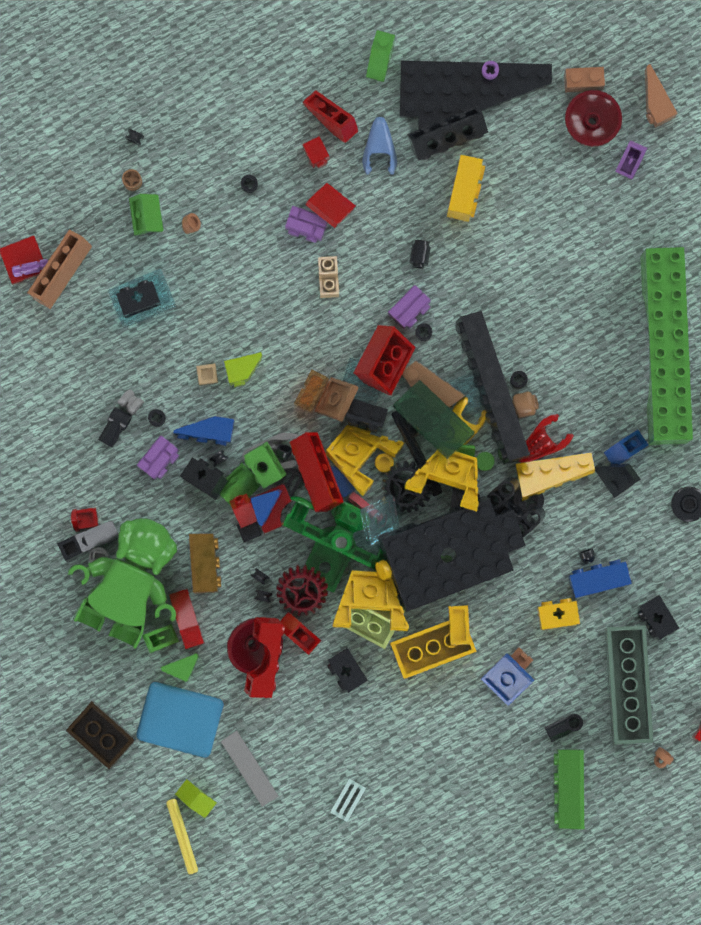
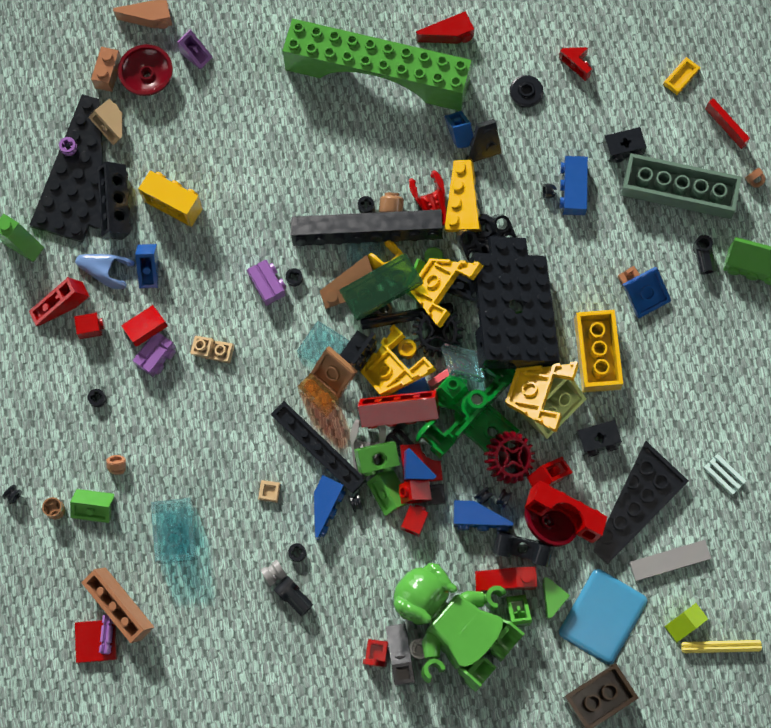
camera: 70 degrees left, 10 degrees down
(148, 300) = (180, 540): black brick -> none
(158, 458) = (337, 561): medium lavender brick -> none
(204, 563) = (456, 545): pearl gold slope -> none
(211, 485) = (381, 518): black brick -> none
(218, 518) = (414, 520): none -> red brick
(218, 610) = (538, 552): none -> black beam
(238, 571) = (475, 515): none -> blue slope
(242, 368) = (275, 455): lime slope -> none
(261, 407) = (318, 447): none -> black plate
(283, 452) = (369, 437): black hinge -> none
(307, 728) = (644, 494): none -> black wing
(383, 569) = (513, 370): yellow tile -> none
(384, 359) = (308, 317): red slope -> none
(393, 187) = (147, 265): none -> blue slope
(420, 254) = (218, 258): black brick -> none
(459, 625) = (585, 317): yellow tile -> none
(530, 100) = (108, 120): none -> tan slope
(549, 621) = (597, 220): yellow brick -> none

